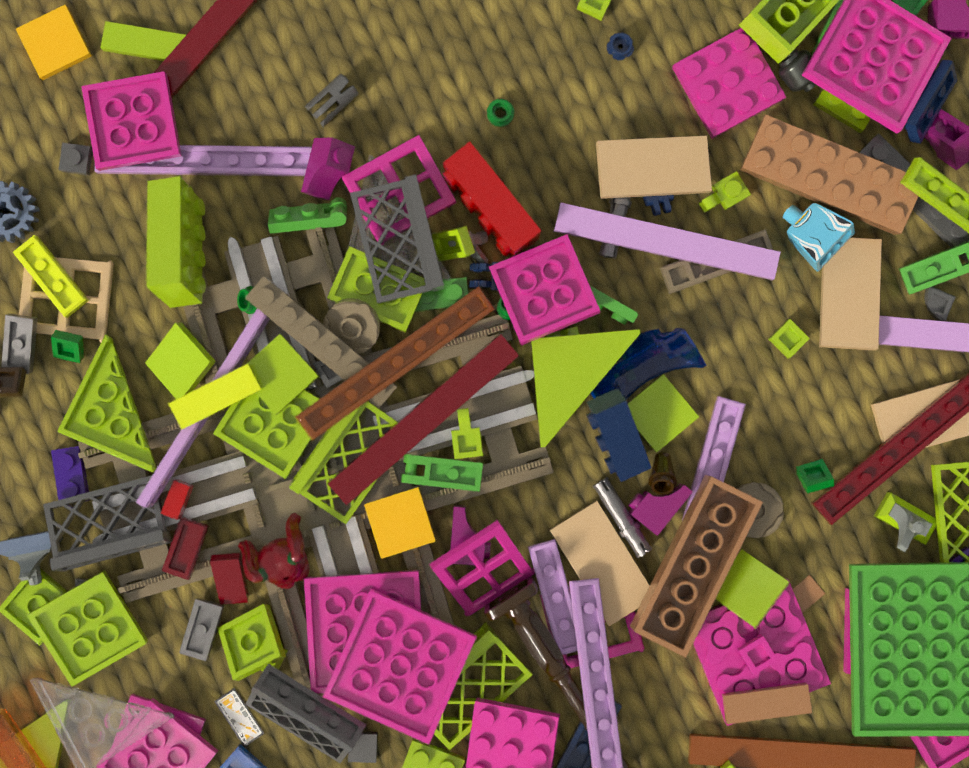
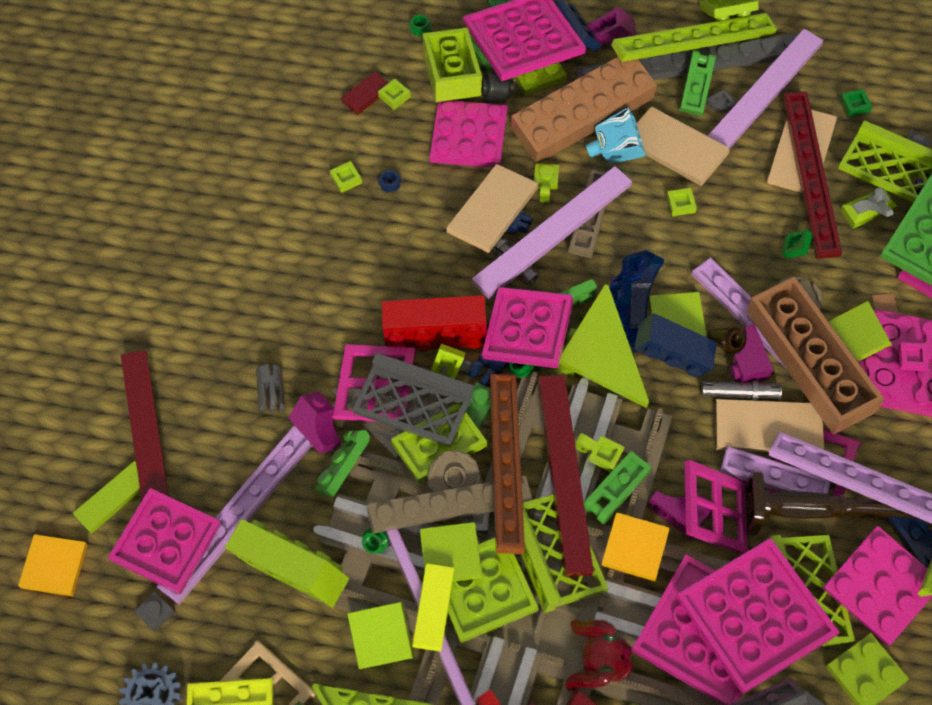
camera: 55 degrees left, 25 degrees down
(500, 104) = (373, 278): green plate -> none

